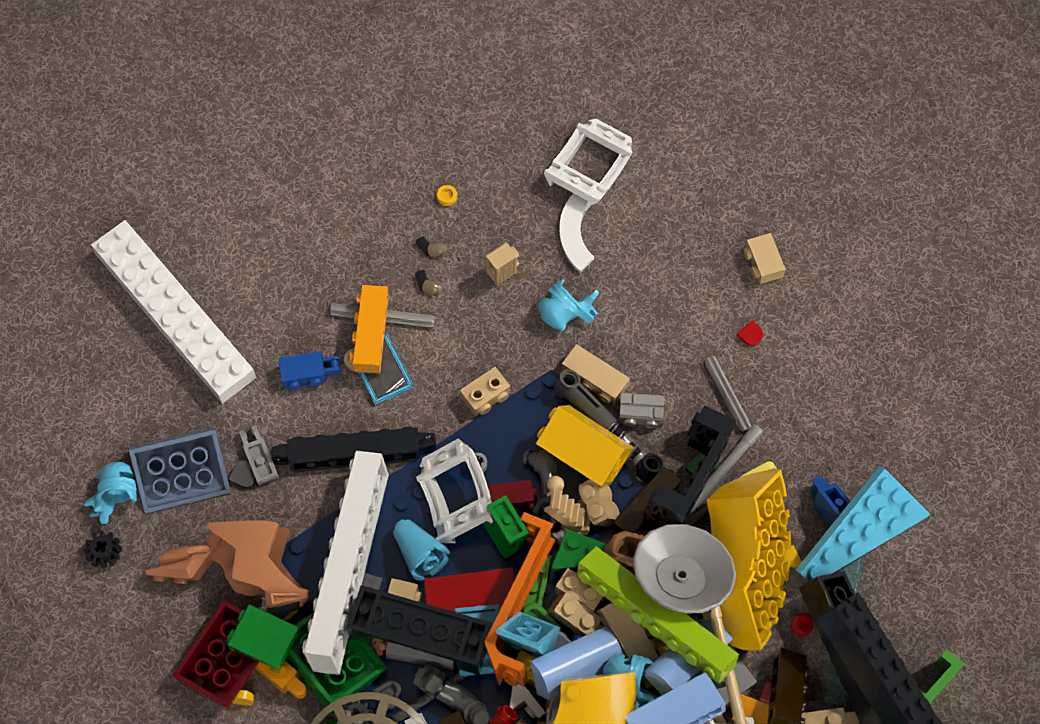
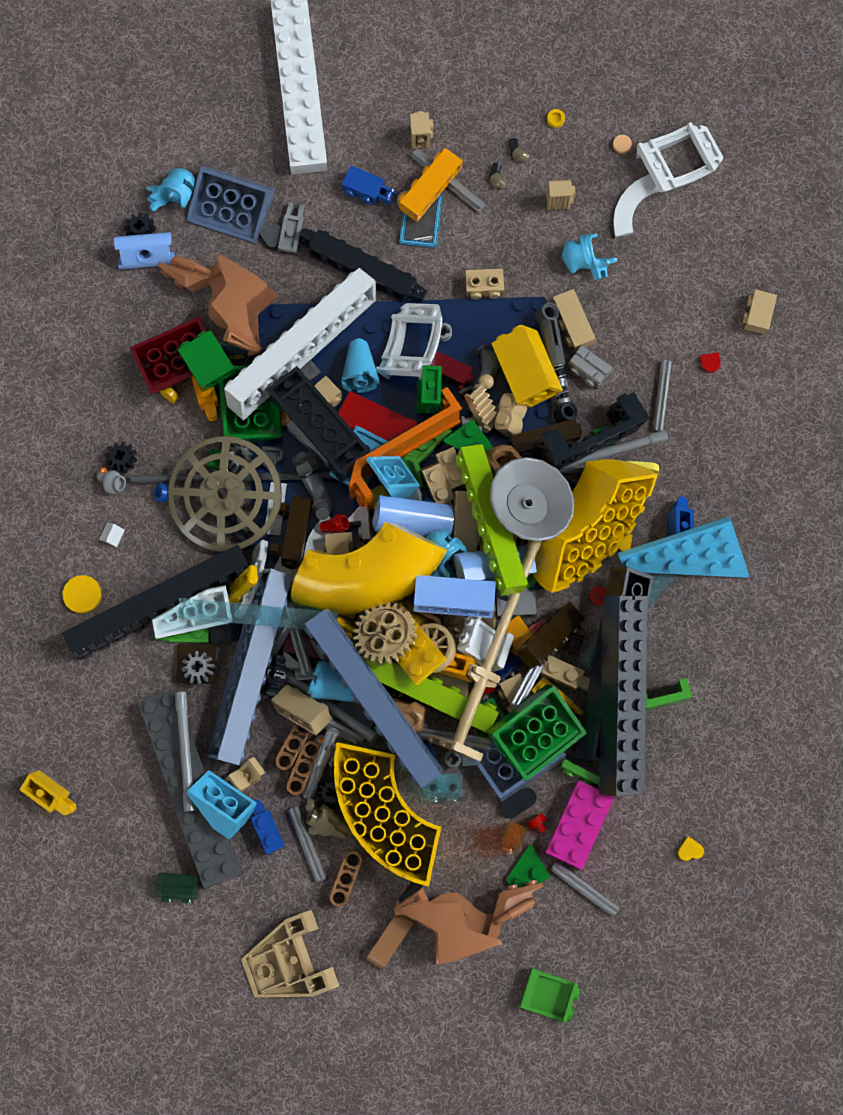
camera: 30 degrees right, 10 degrees up
(109, 574) = (131, 250): none -> light blue piece
(325, 283) = (421, 130): none -> tan brick
(526, 181) = (622, 144): none -> light nougat tile

